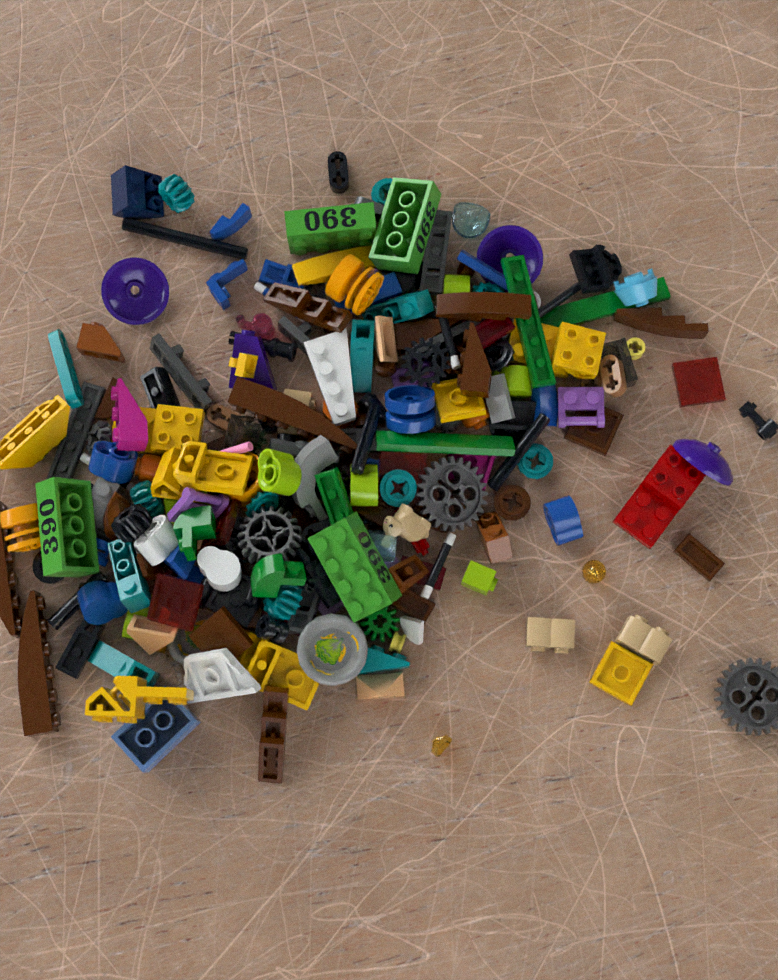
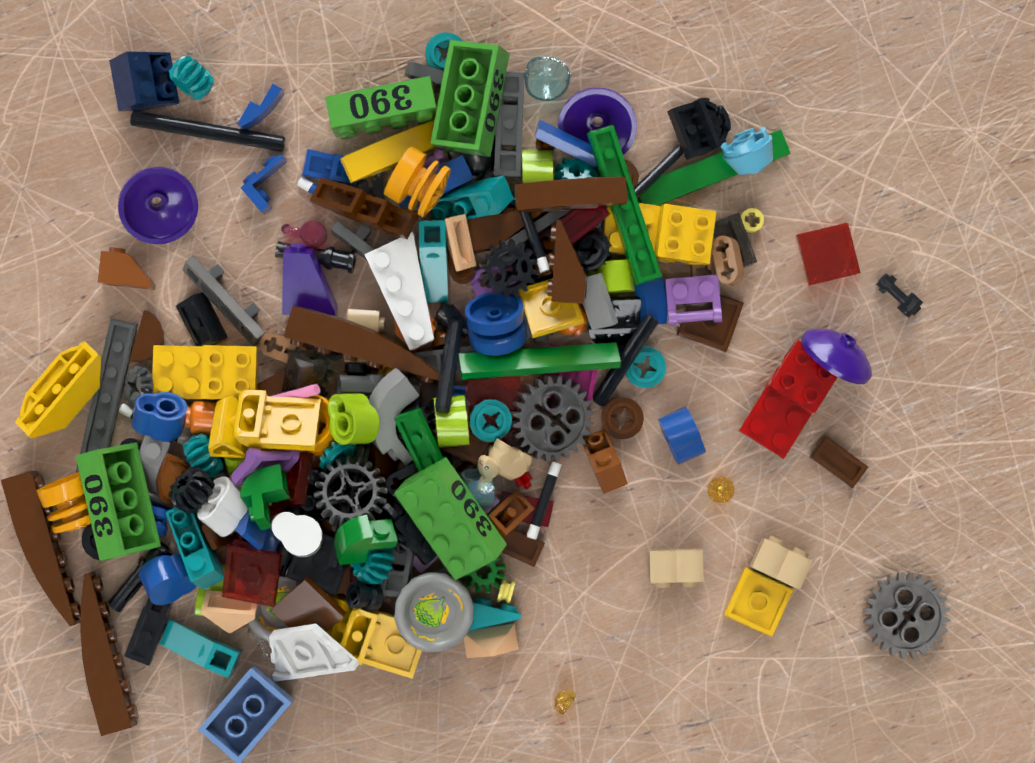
camera: 10 degrees left, 10 degrees up
(66, 369) = (88, 307): teal beam -> none
(106, 704) = (216, 695): yellow piece -> none
(131, 424) = (174, 371): dark pink slope -> none
(244, 365) = (299, 290): yellow tile -> none
(273, 734) = (377, 707): reddish brown slope -> none
(333, 172) = (376, 30): black beam -> none
(413, 629) = (521, 574): white tile -> none
(479, 578) = (592, 510): lime brick -> none
(653, 322) = (770, 186): reddish brown slope -> none

